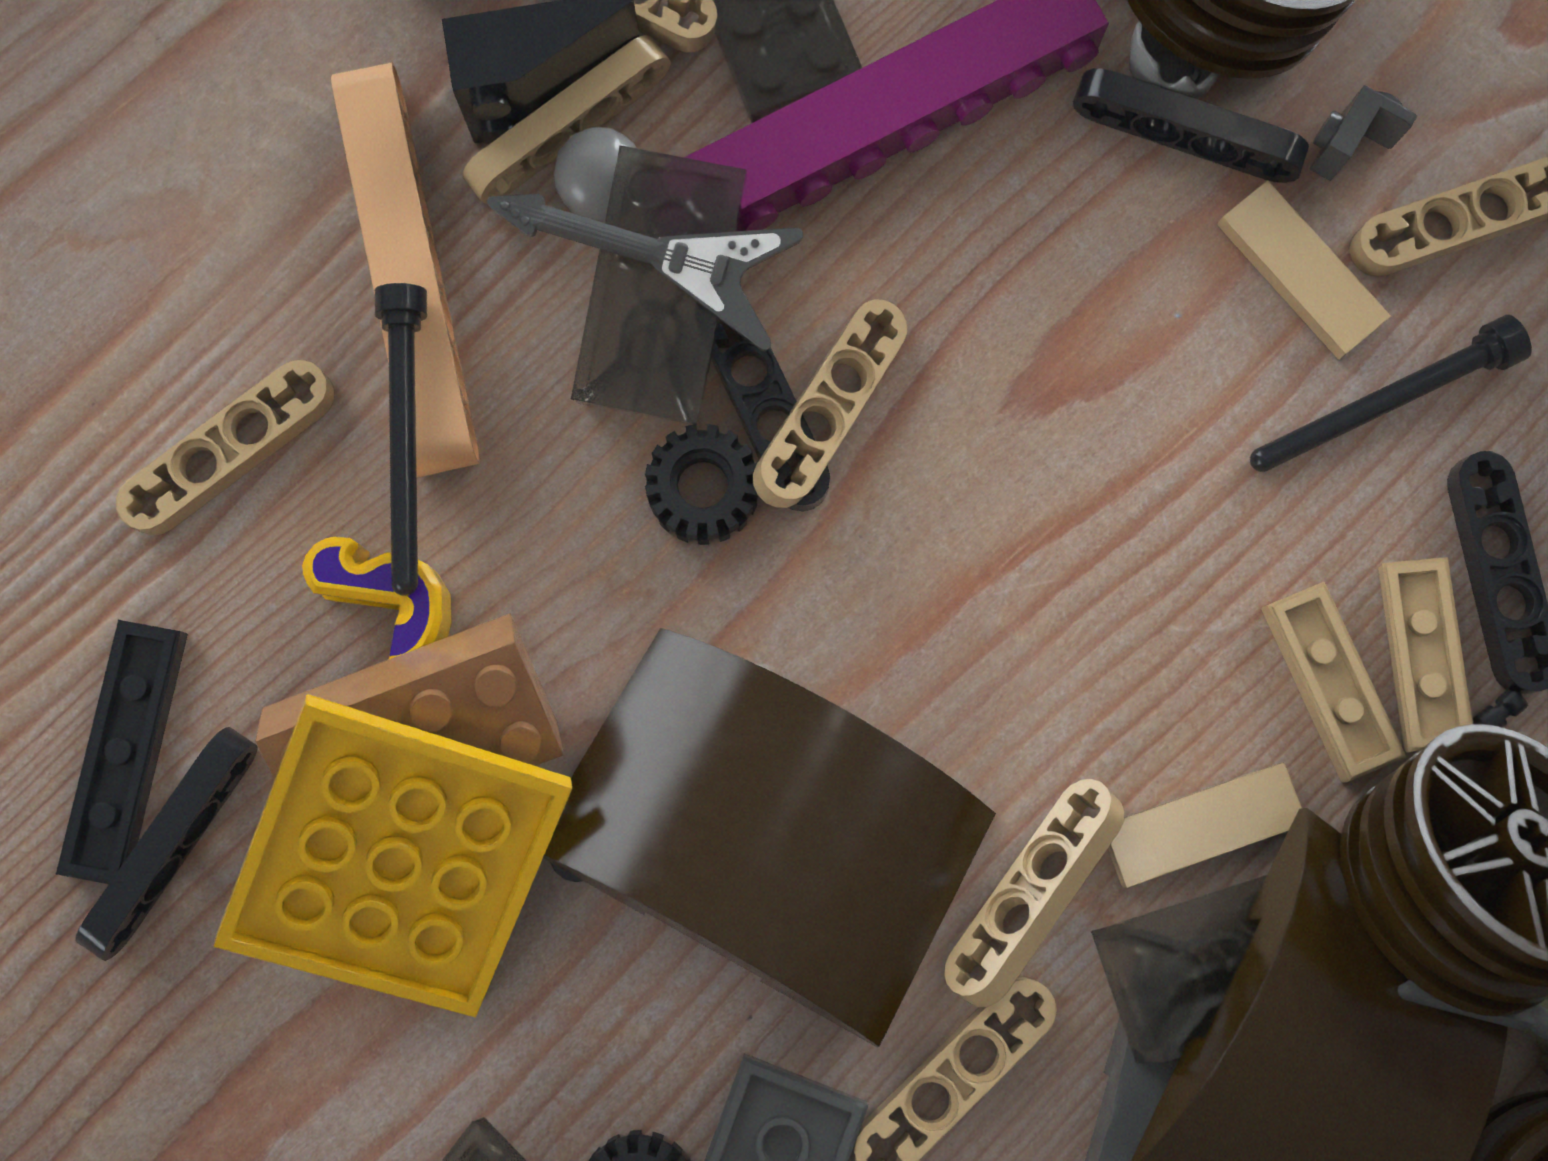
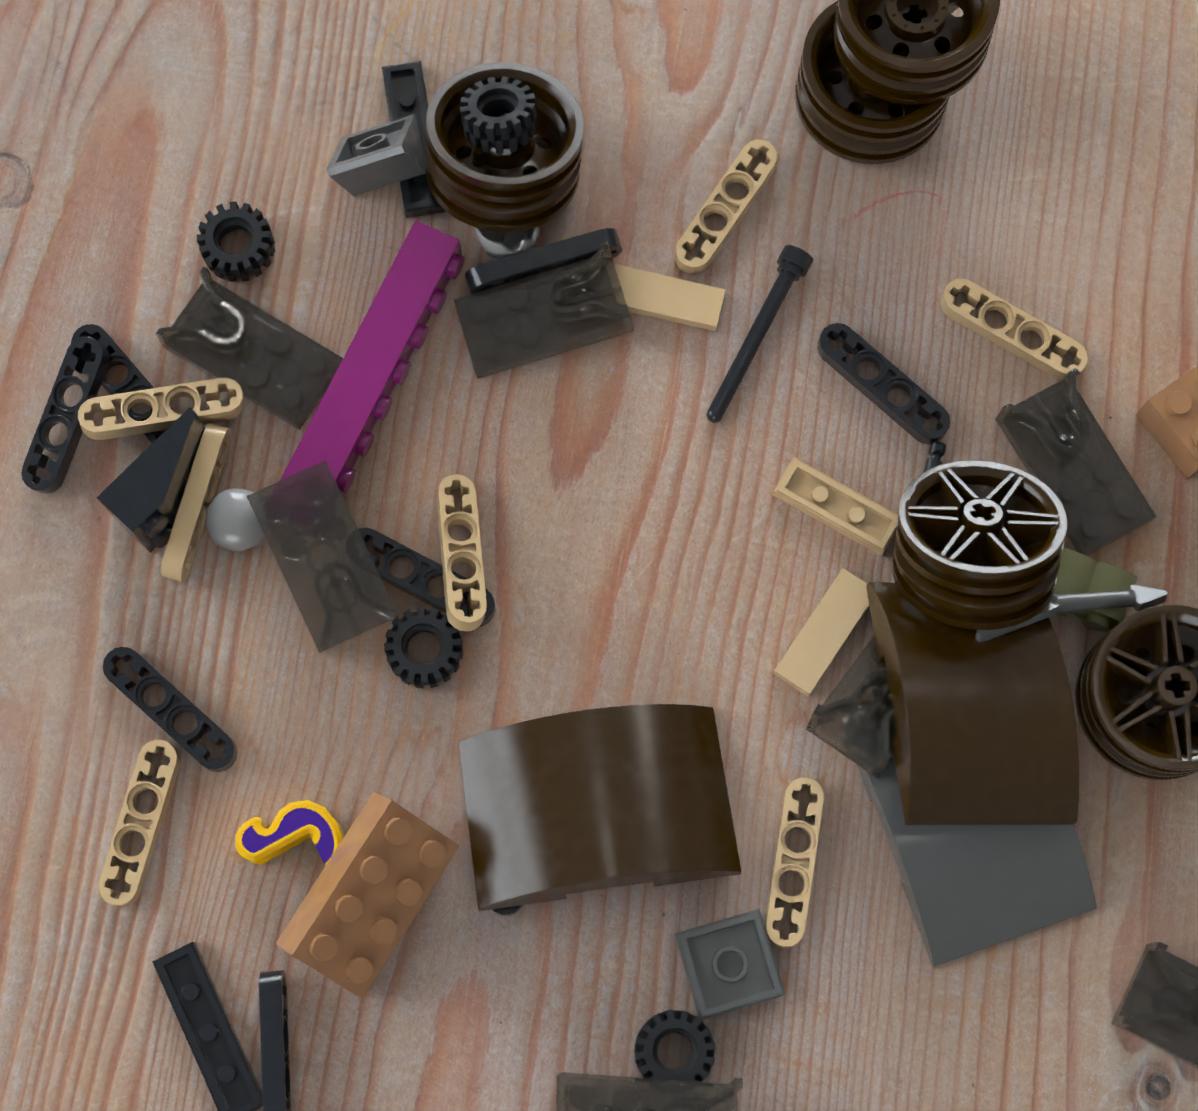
camera: 35 degrees left, 5 degrees down
(350, 342) = (172, 706): none -> black beam
(392, 858) = (410, 966): yellow plate -> none
(401, 311) = (190, 673): black piece -> none
(404, 250) = (168, 650): light nougat beam -> none
(699, 264) = (338, 529): piece -> none
(1044, 898) = (769, 731): tan beam -> none
(1146, 190) = (544, 314): none -> clear smoke plate
(1369, 115) = (632, 189): dark grey bracket -> none
(1424, 649) = (869, 451): tan tile -> none

